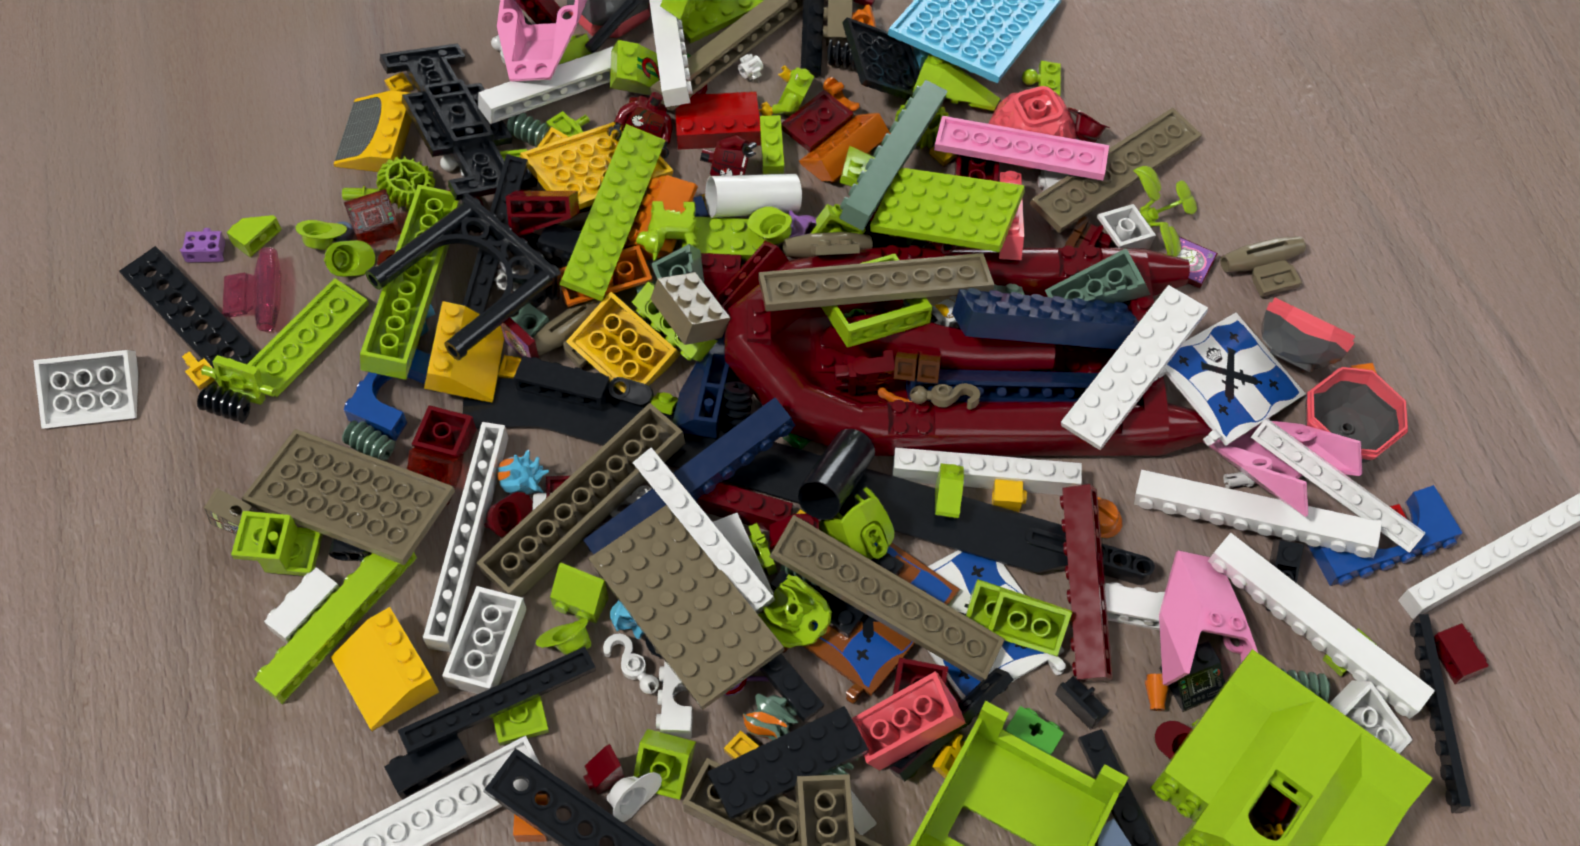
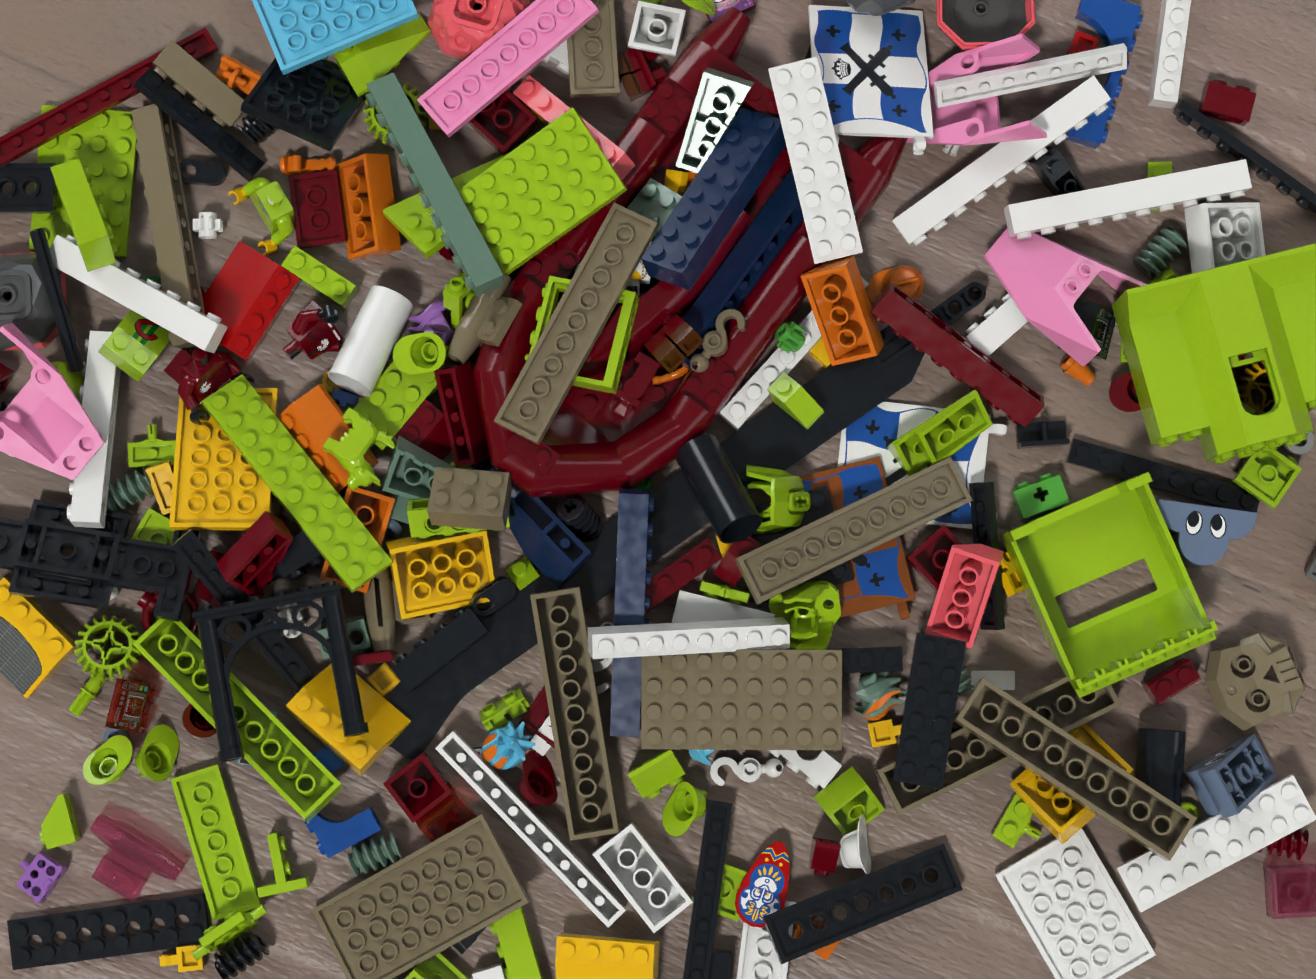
camera: 55 degrees left, 25 degrees up
(313, 388) = (281, 868): none -> lime bracket
(546, 739) = (764, 885): none -> shield
(557, 463) = (494, 714): none -> lime hinge
(628, 296) = (393, 530): none -> sand blue tile
(784, 50) = (207, 172): none -> black piece
(992, 449) = (790, 337): none -> bright green gear
(1043, 471) = (842, 311): none -> orange slope

